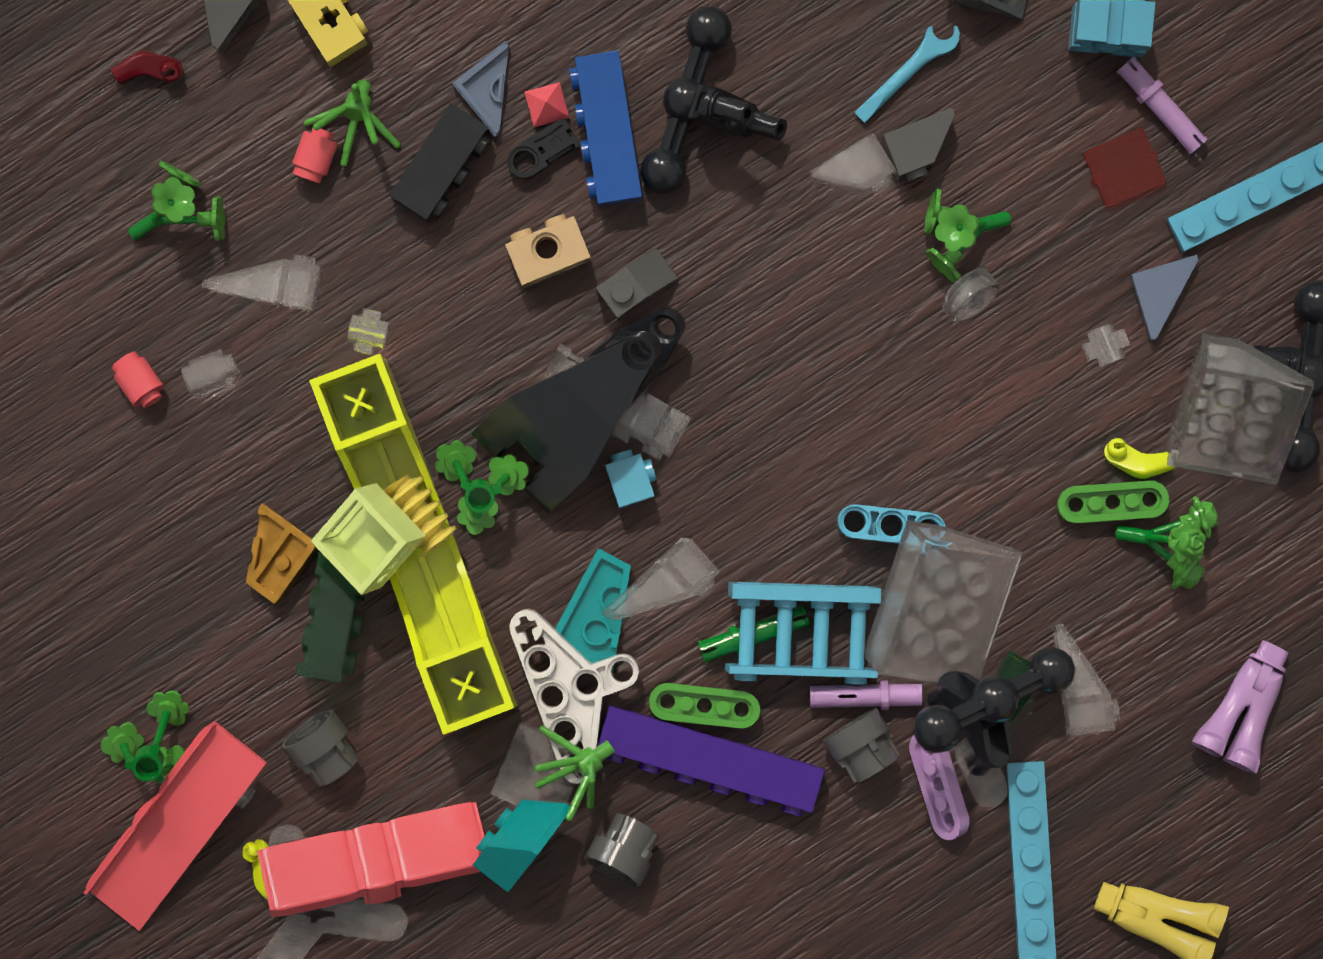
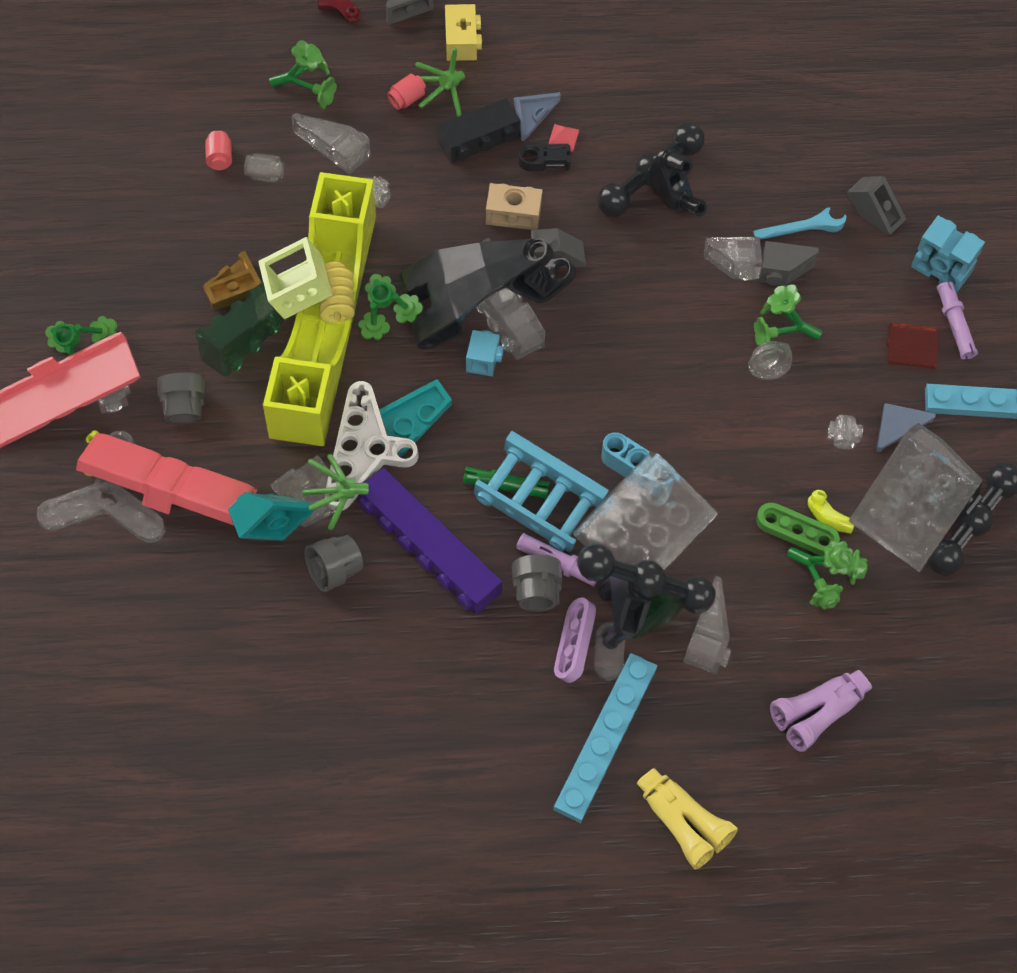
camera: 25 degrees right, 25 degrees down
(607, 128) = (592, 162): blue brick -> none
(672, 578) = (470, 418): clear slope -> none
(722, 707) = (440, 498): bright green plate -> none

